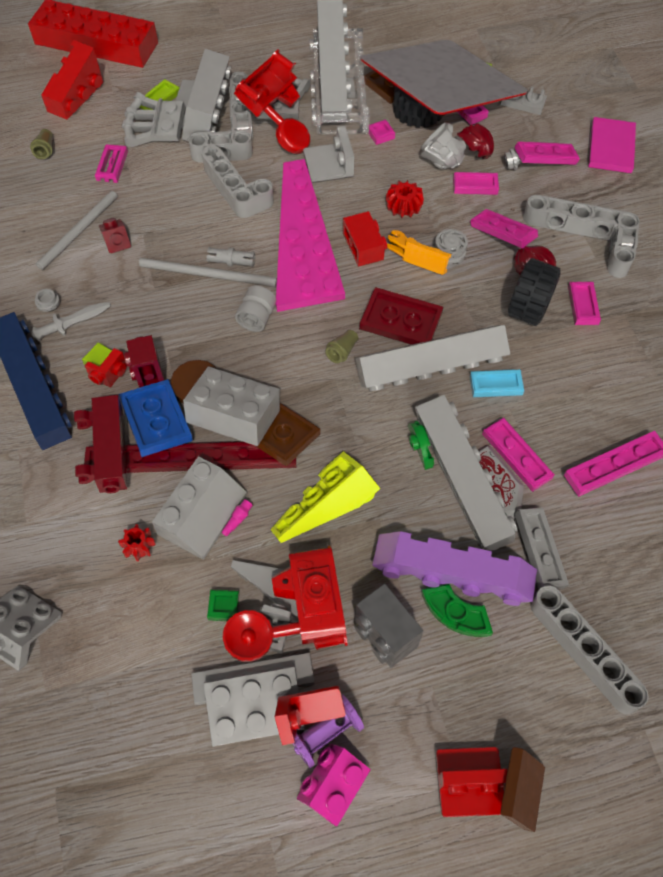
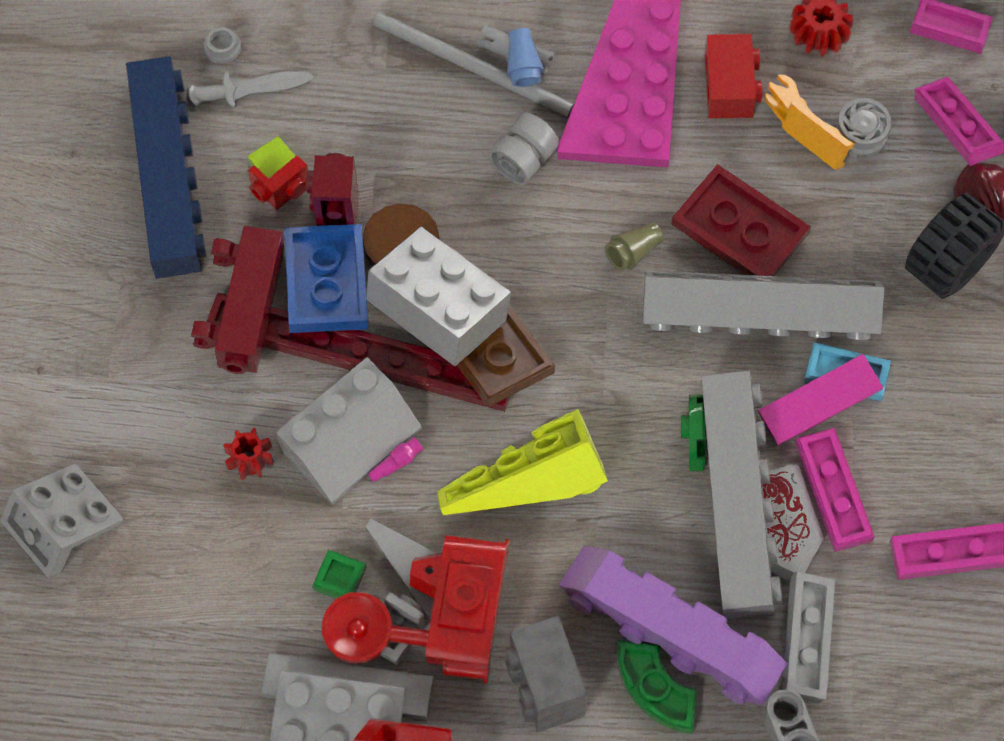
camera: 20 degrees right, 5 degrees up
(239, 260) = (523, 60): none -> medium blue cone
(490, 402) = (820, 400): none -> dark pink tile

